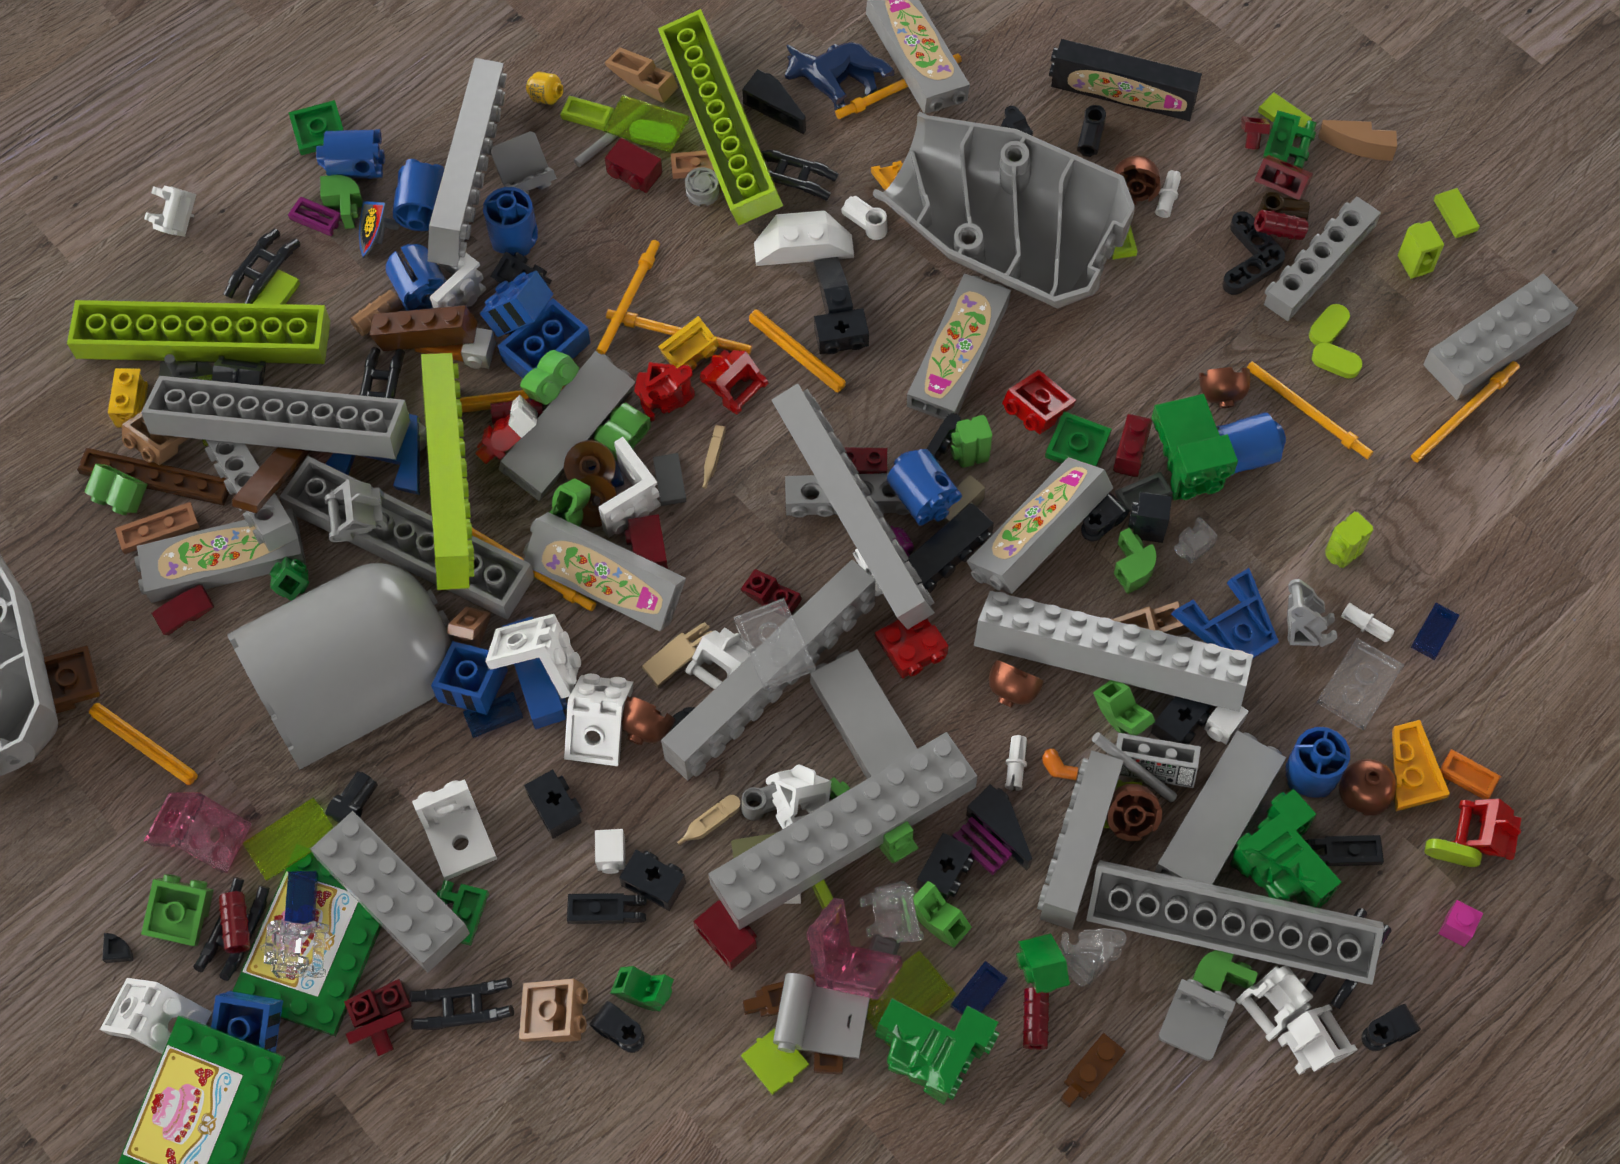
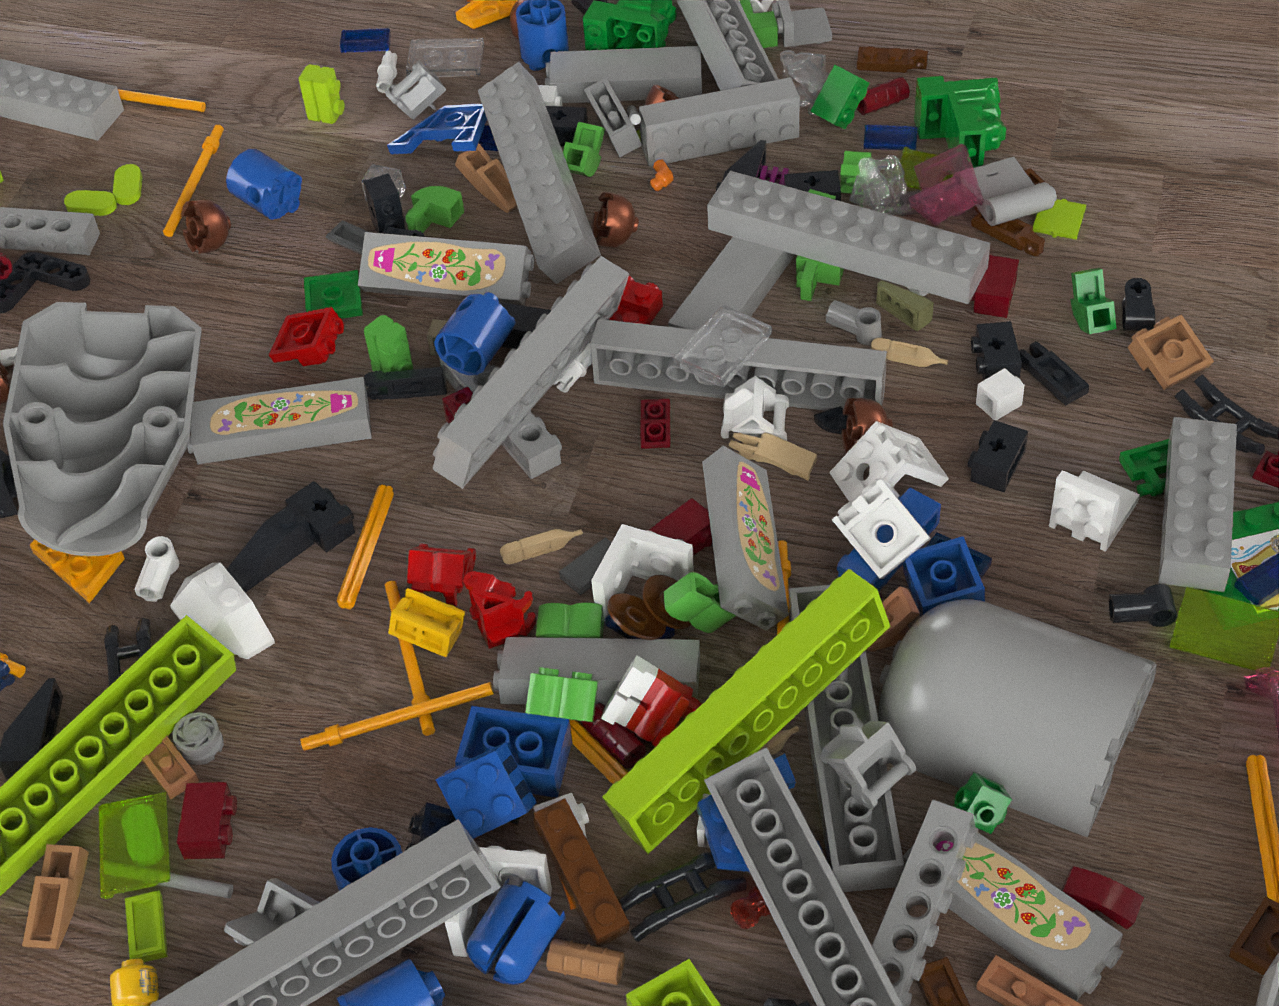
camera: 120 degrees left, 15 degrees down
(268, 479) = (899, 868): reddish brown tile -> none
(795, 788) = (837, 285): white piece -> none
(1016, 762) = (682, 197): white axle -> none
(1132, 445) = (312, 256): dark red brick -> none
(1194, 449) = (299, 200): green brick -> none

